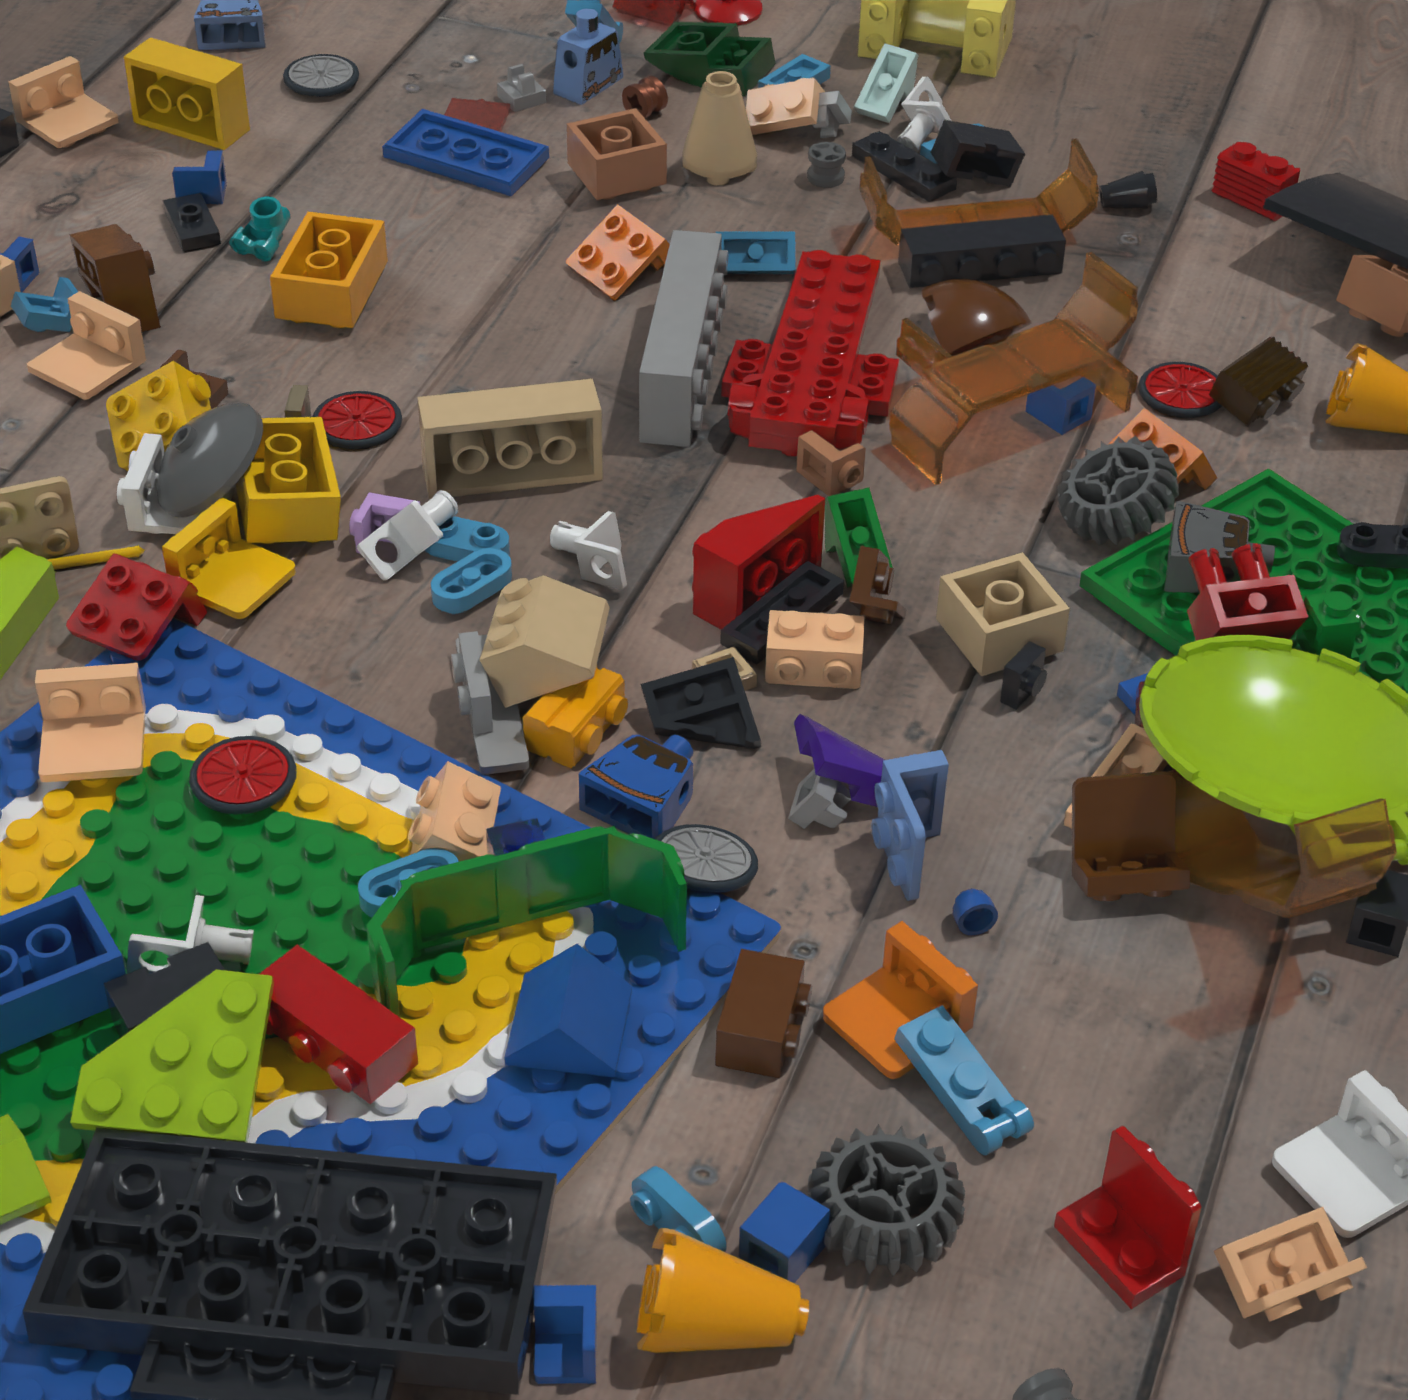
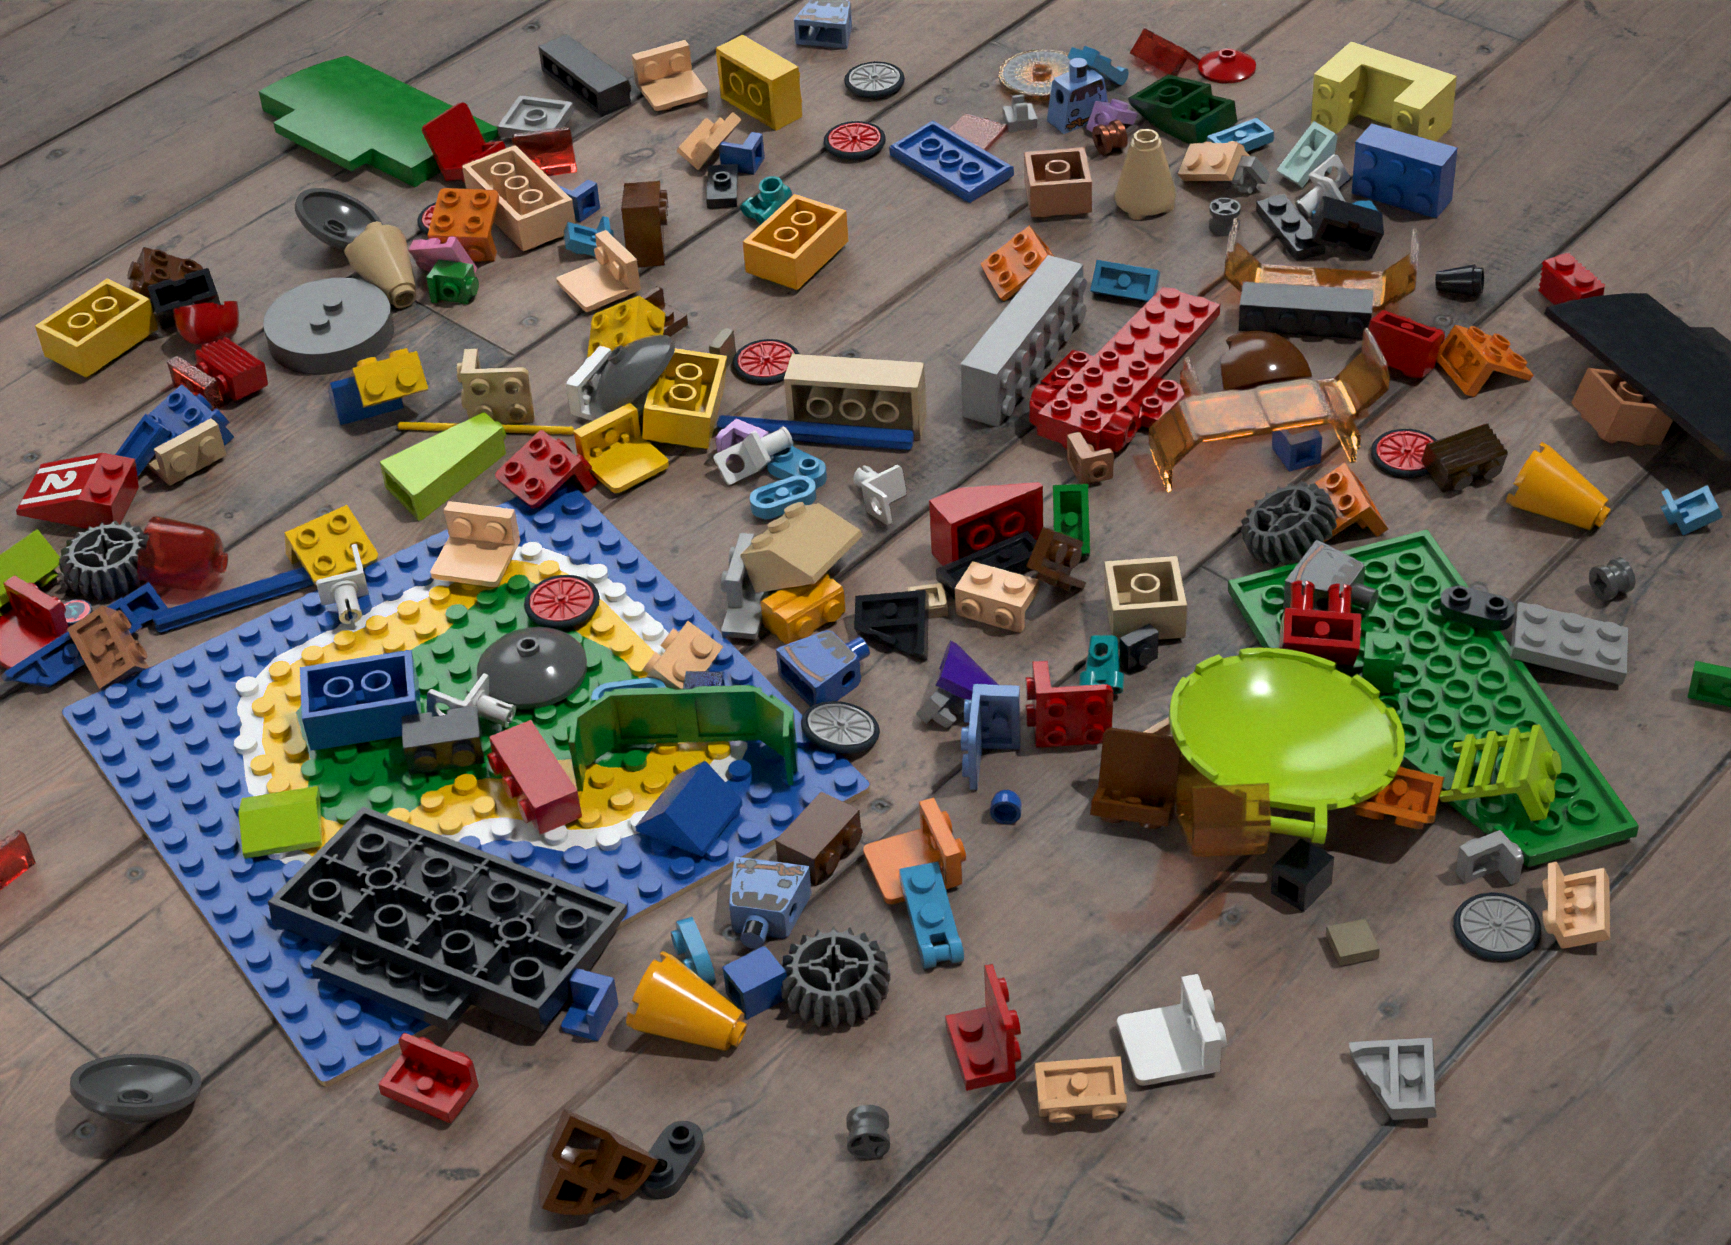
camera: 25 degrees right, 0 degrees up
(149, 171) = (706, 139): none -> light nougat bracket
(185, 1066) = (430, 780): lime plate -> none
(249, 869) = (533, 667): none -> dark grey dish
(333, 145) = (854, 140): none -> wheel
(490, 490) = (830, 433): none -> blue axle
(517, 41) = (1033, 72): none -> piece
(627, 73) = (1106, 112): none -> lavender bracket
(732, 1114) = (767, 898): none -> medium blue torso
(994, 714) = (1104, 668): none -> teal plate
(994, 774) = (1066, 713): none -> red bracket
(1006, 83) = (1404, 170): none -> blue brick
(1132, 259) = (1406, 343): none -> red brick
(1200, 272) = (1472, 356): none -> orange bracket

